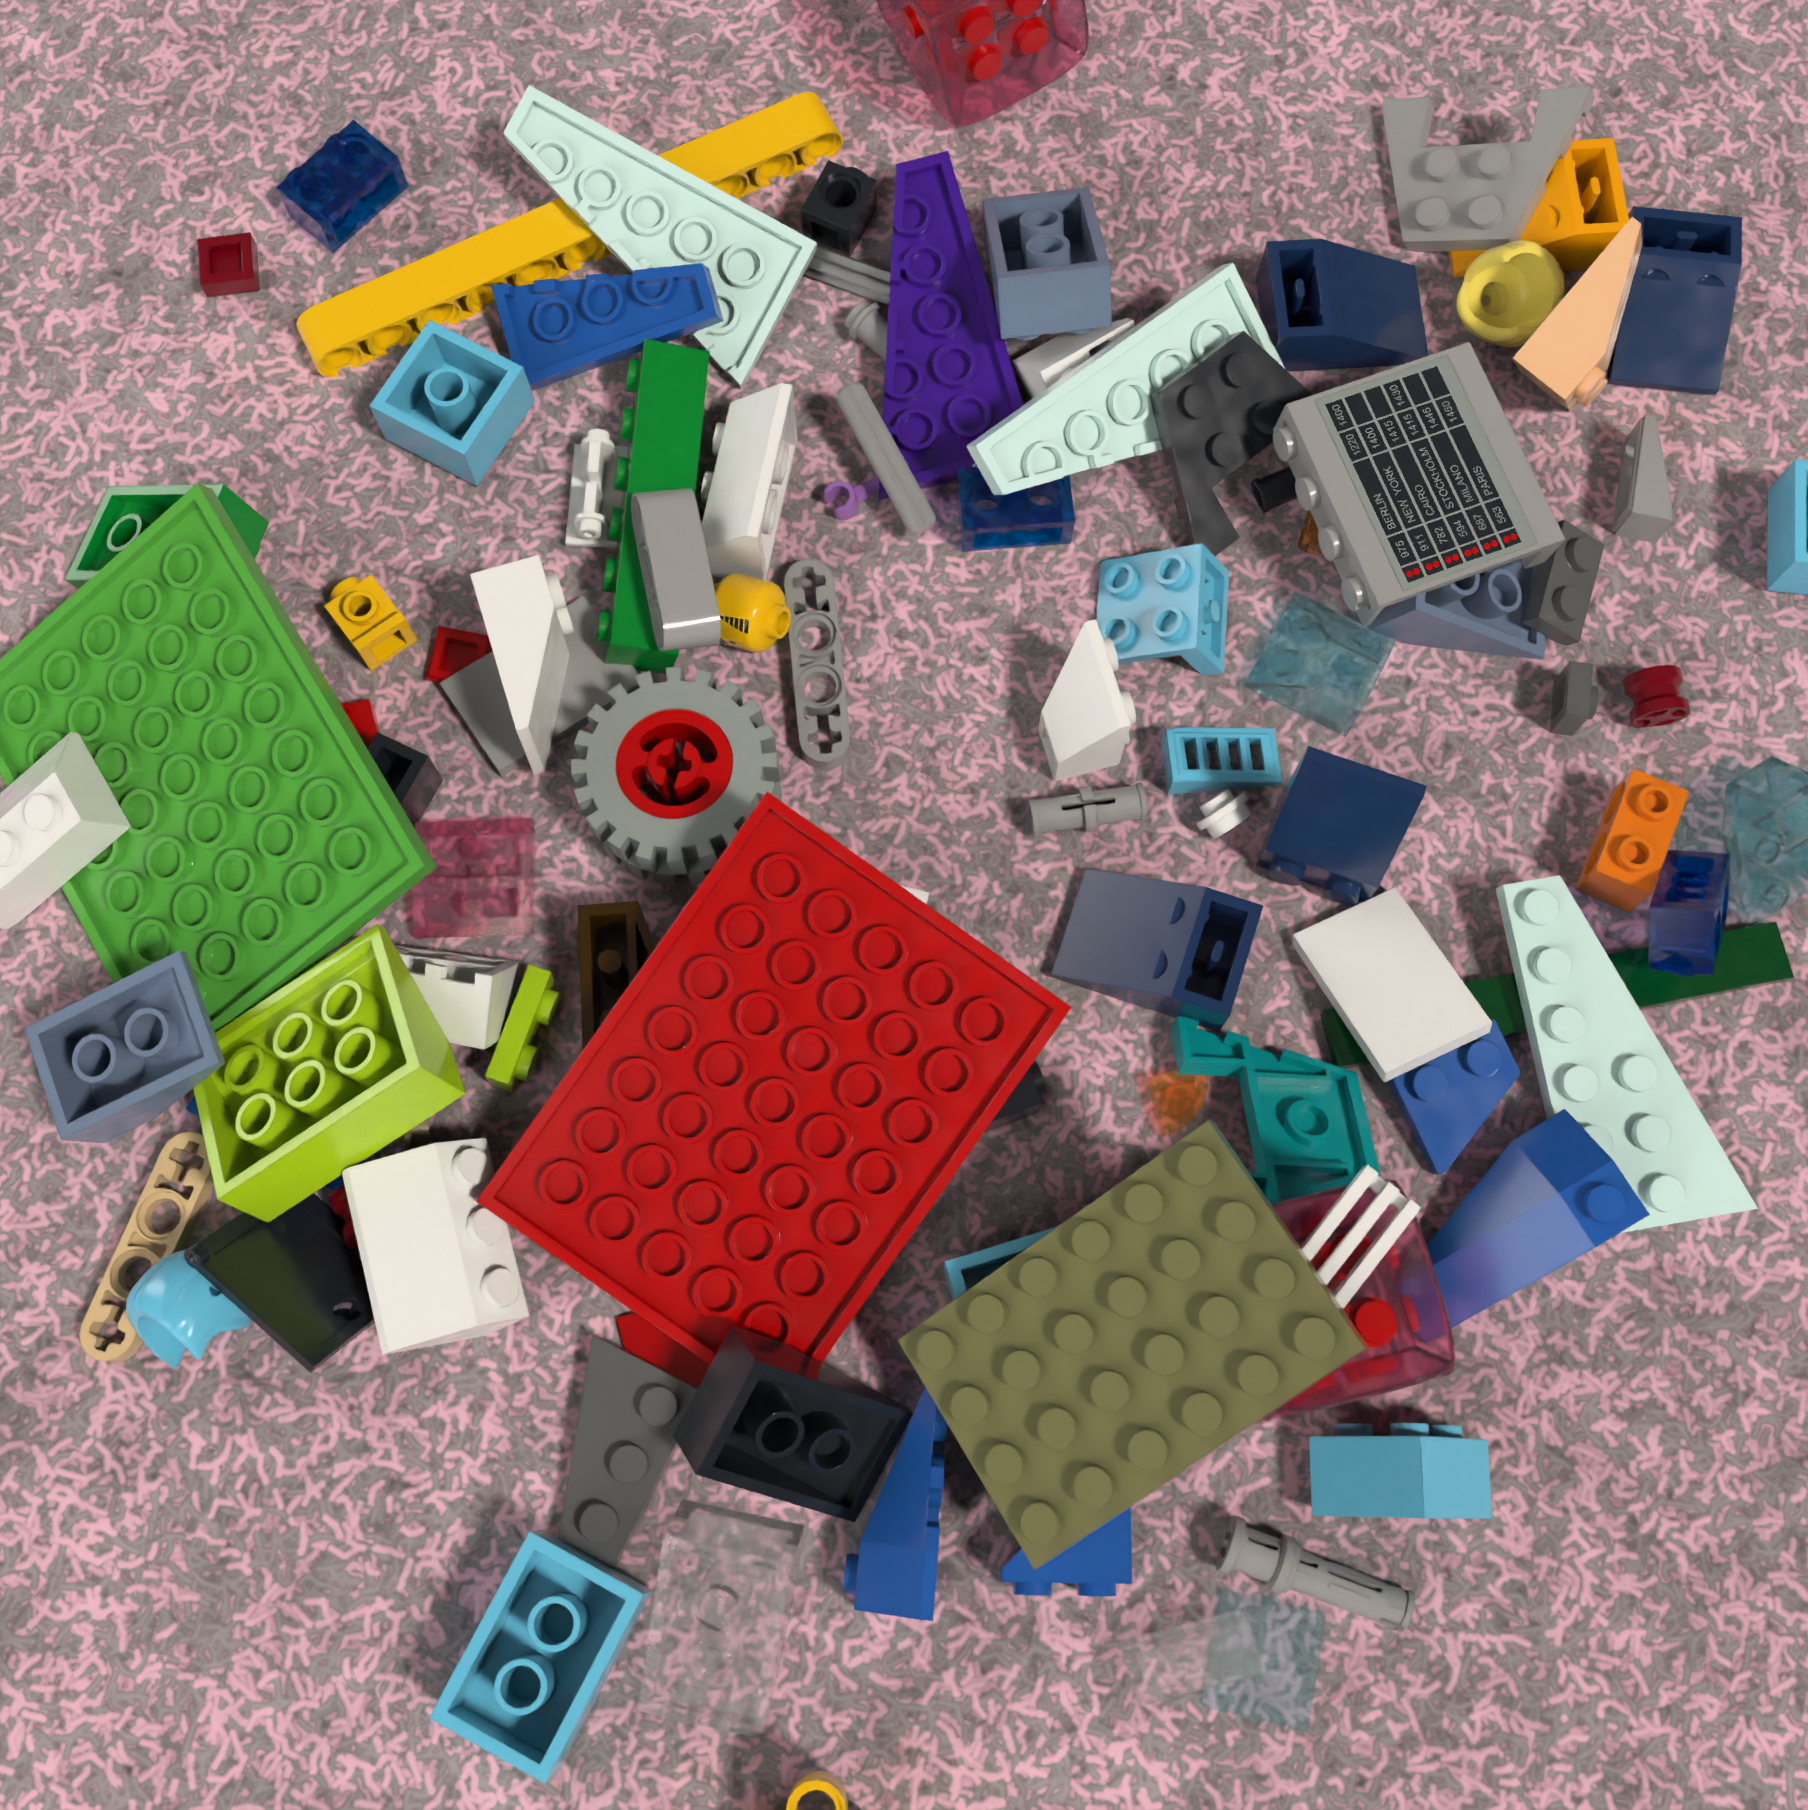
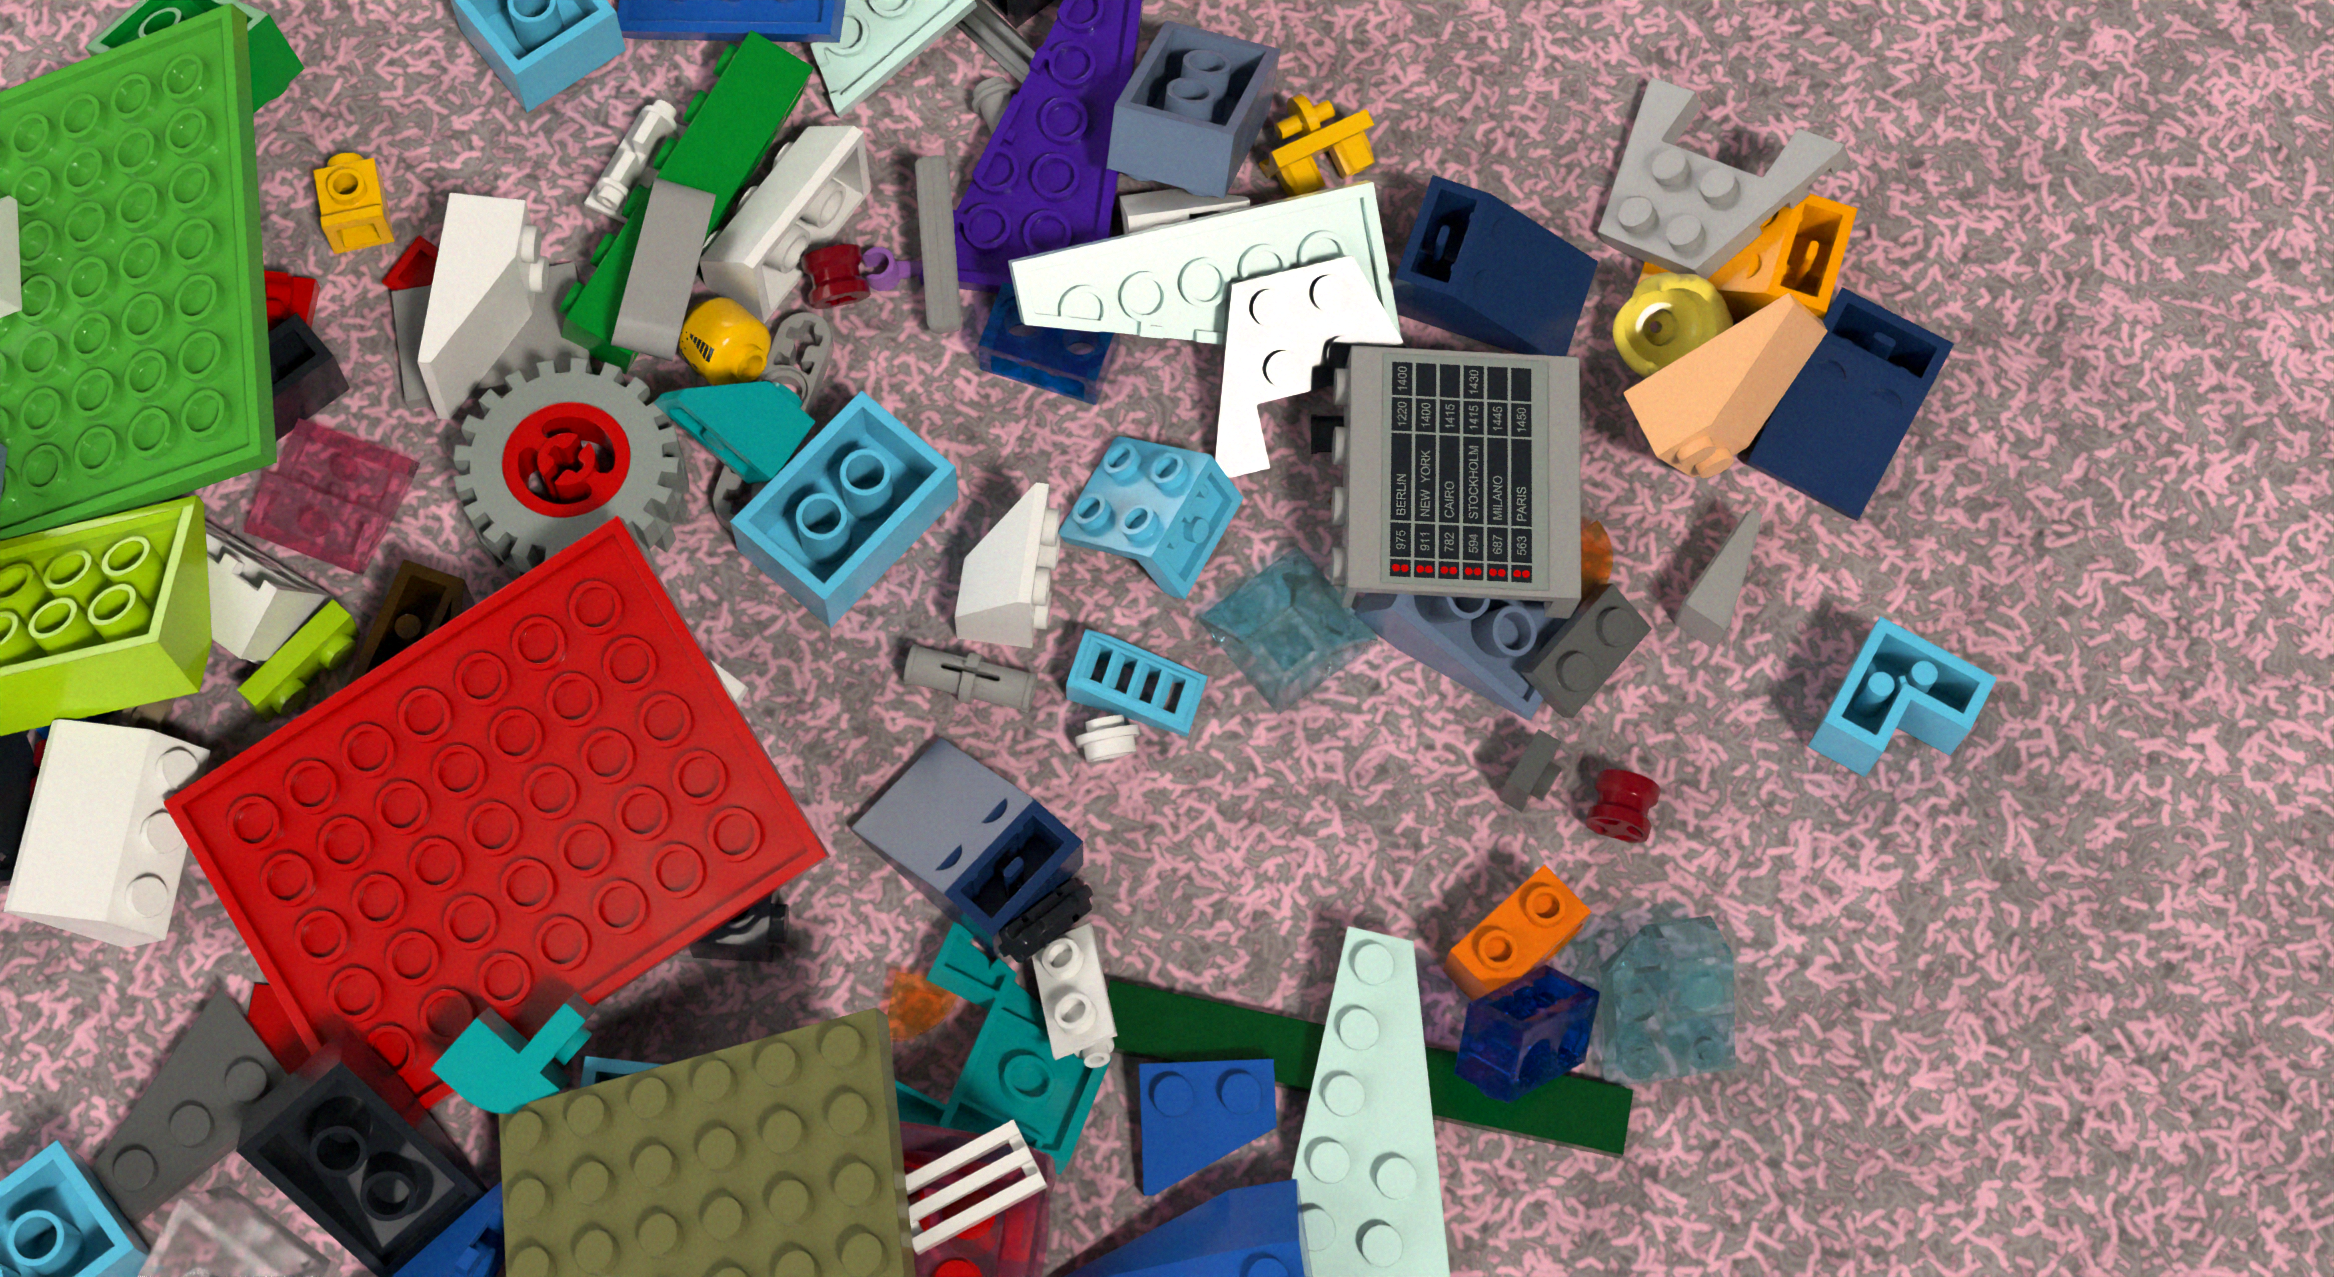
camera: 20 degrees right, 5 degrees down
(808, 675) = (742, 424): none -> teal slope
(811, 520) = (835, 276): none -> dark red wheel
(893, 1302) = (502, 1069): none -> teal brick
(919, 710) = (845, 508): none -> medium azure brick
(1167, 247) = (1344, 141): none -> yellow hips
(1255, 986) = (1045, 920): none -> black axle
(1311, 1034) = (1075, 997): none -> white hinge
(1338, 826) = (1199, 796): dark blue slope -> none
(1391, 984) = (1187, 981): white tile -> none

